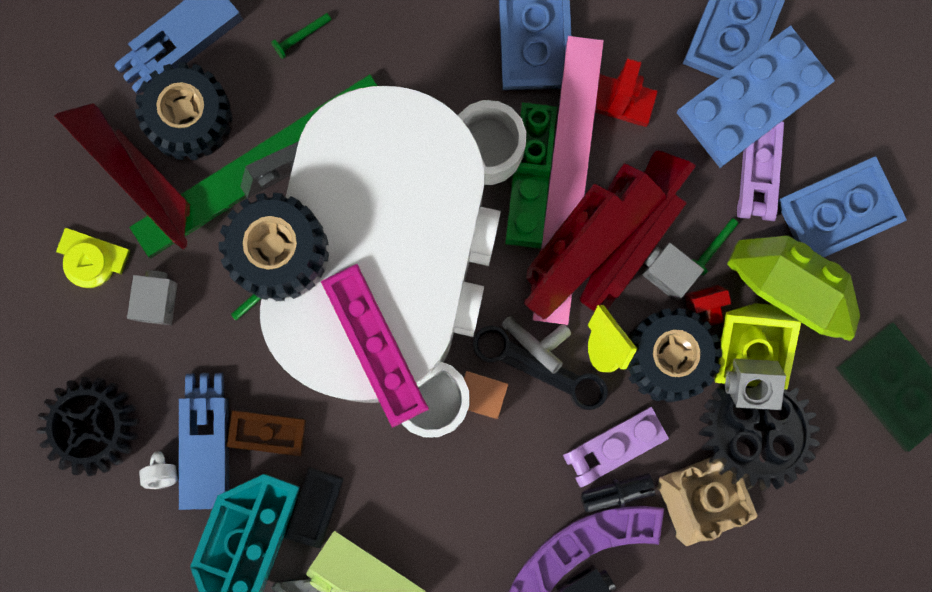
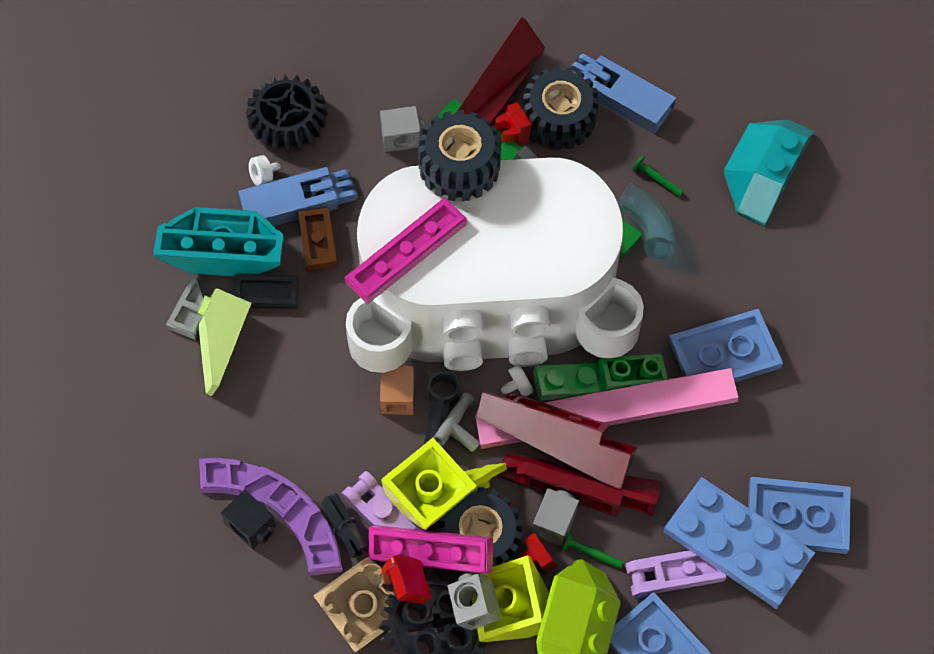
camera: 80 degrees right, 20 degrees down
(89, 260) = (420, 81): neon yellow piece -> none
(189, 166) = (516, 123): none -> red tile
(355, 58) = (651, 218): none -> clear light blue cylinder
(507, 260) = (519, 382): none -> white tile
(620, 395) = (427, 485): none -> neon yellow slope
(625, 96) = (697, 434): red bracket -> none
(686, 412) = (433, 548): none -> dark pink tile
(718, 447) = (407, 578): none -> red tile

